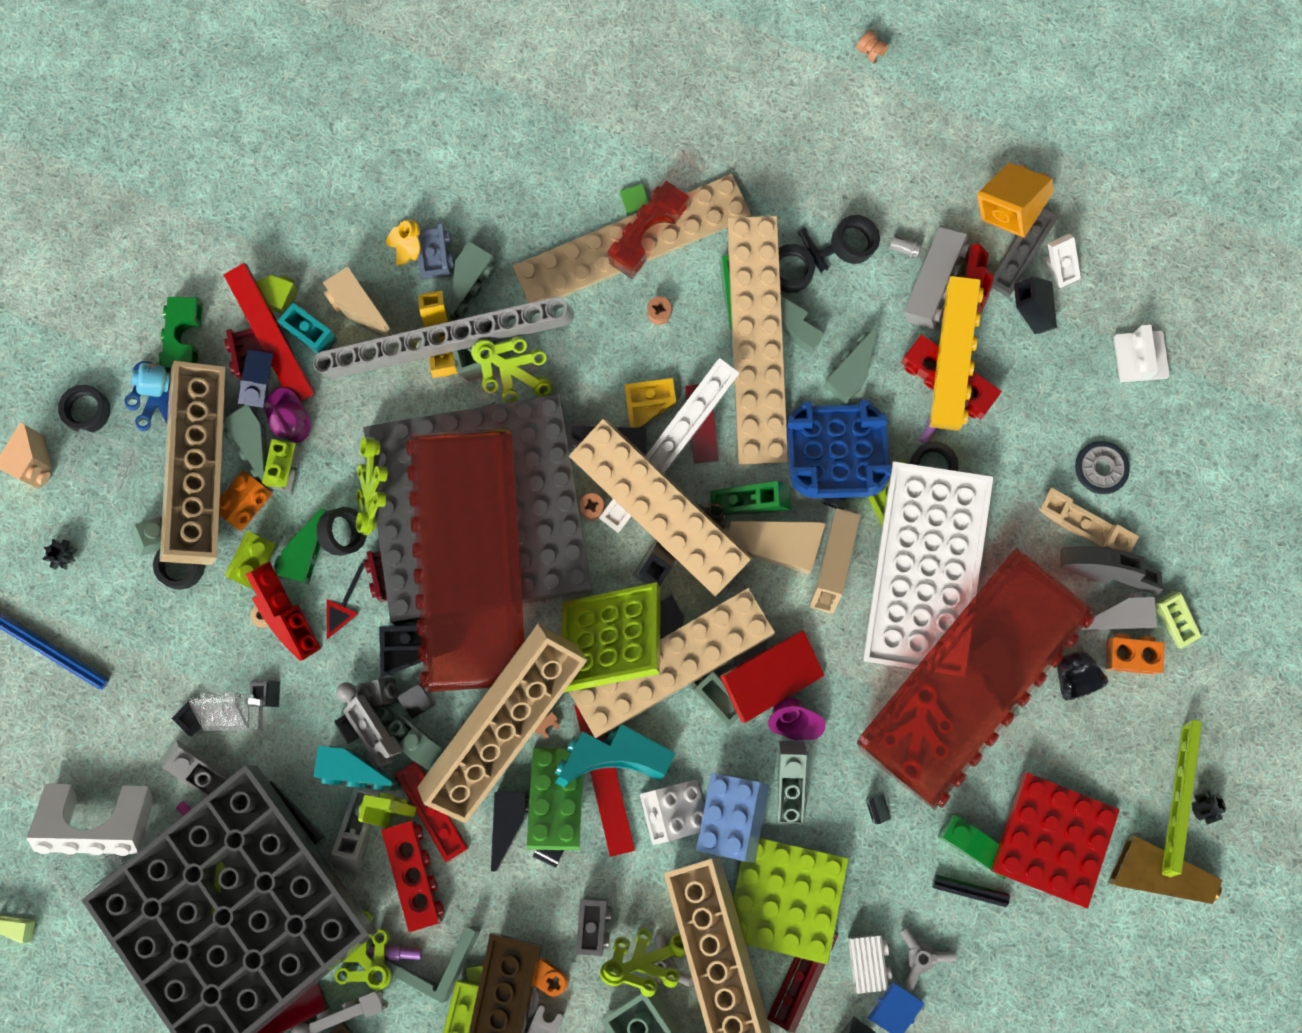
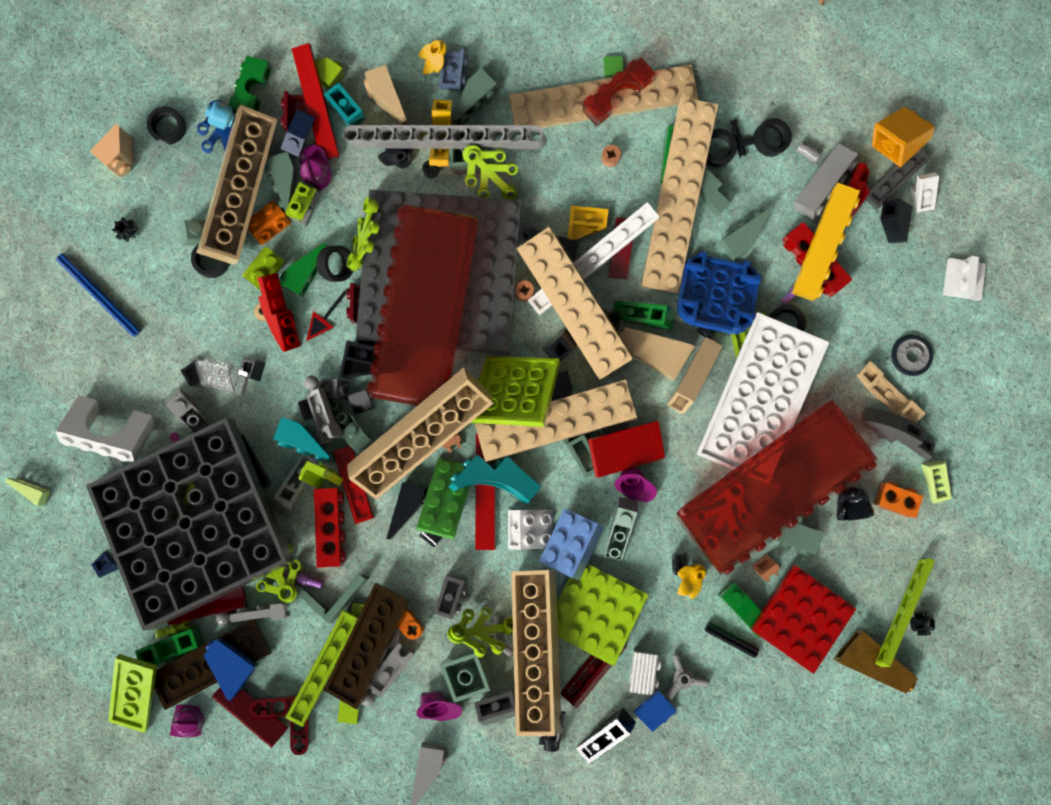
camera: 10 degrees right, 5 degrees up
(131, 1001) = (106, 567): none -> dark blue slope
(382, 377) = (392, 155): none -> black plate
(430, 388) = (426, 173): none -> black bush
(899, 825) = (691, 580): none -> yellow plate
(990, 785) = (766, 567): none -> nougat tile
(1024, 735) = (802, 538): none -> sand green brick
(1130, 614) = (904, 469): light grey slope -> none

